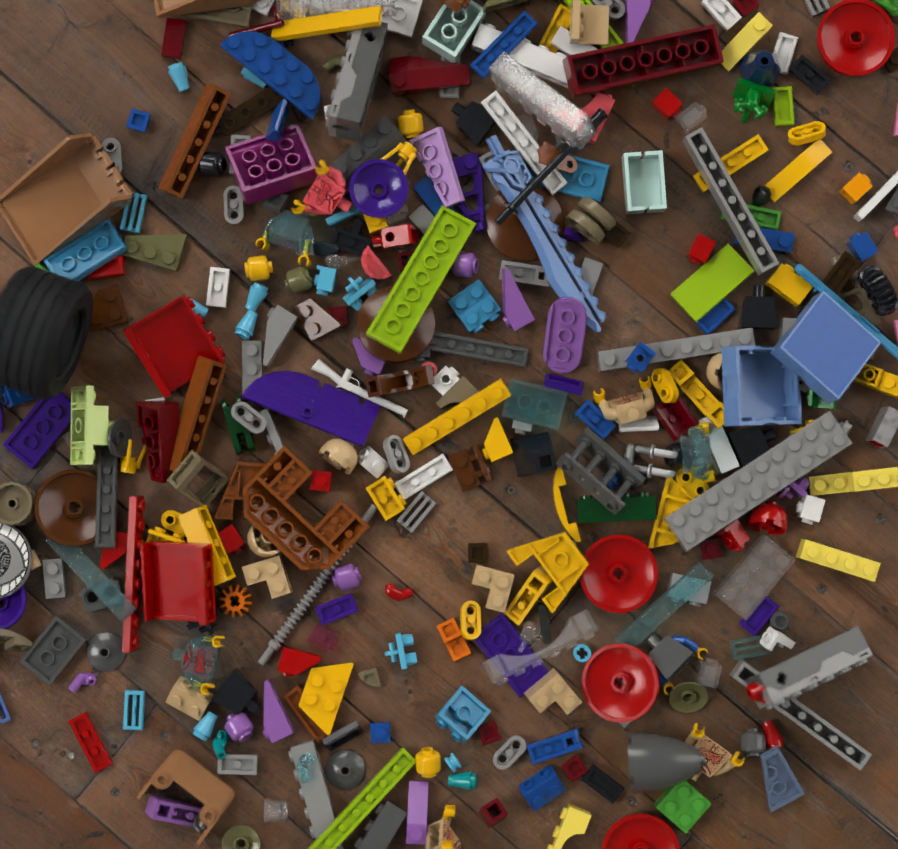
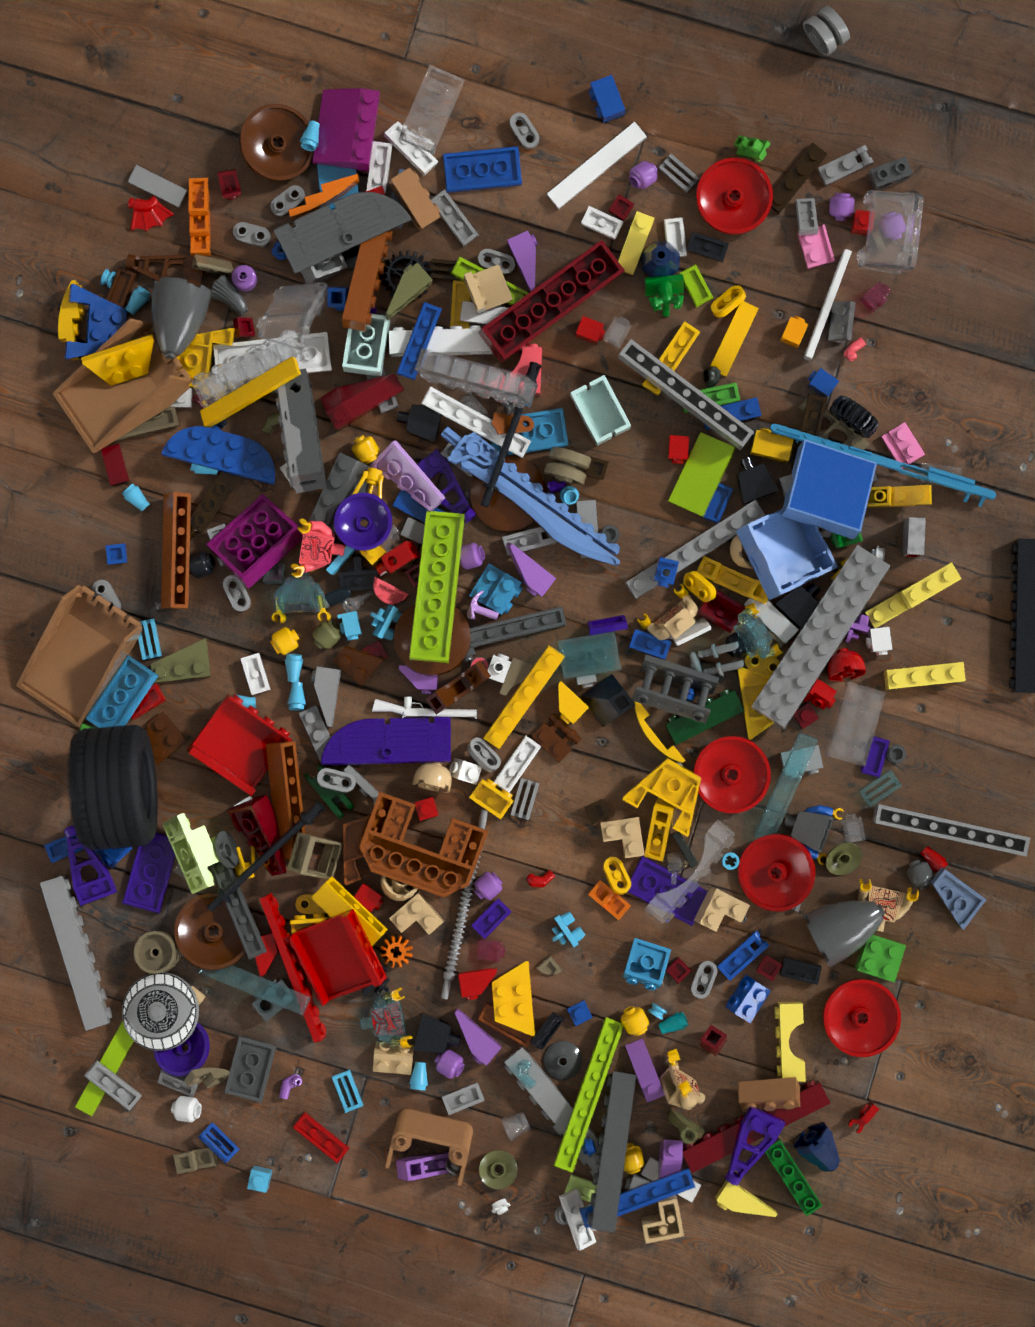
camera: 25 degrees left, 0 degrees up
(17, 756) = (259, 1179): none -> medium azure brick
(54, 578) = (222, 1003): light grey plate -> none
(114, 647) = (298, 1039): dark grey dish -> none
(205, 440) = (305, 819): none -> black bar
(219, 744) = (438, 1087): teal arm -> none
(262, 27) = (190, 422): dark red piece -> none
(278, 121) = (243, 499): blue slope -> none
(447, 314) = (474, 608): none -> lavender plant
(565, 335) = (589, 580): medium lavender tile -> none
(581, 248) = (569, 495): none -> medium azure plate
(604, 301) = (611, 532): none -> dark grey tile
(773, 637) = (897, 770): white bracket -> none
(808, 669) = (939, 786): piece -> none

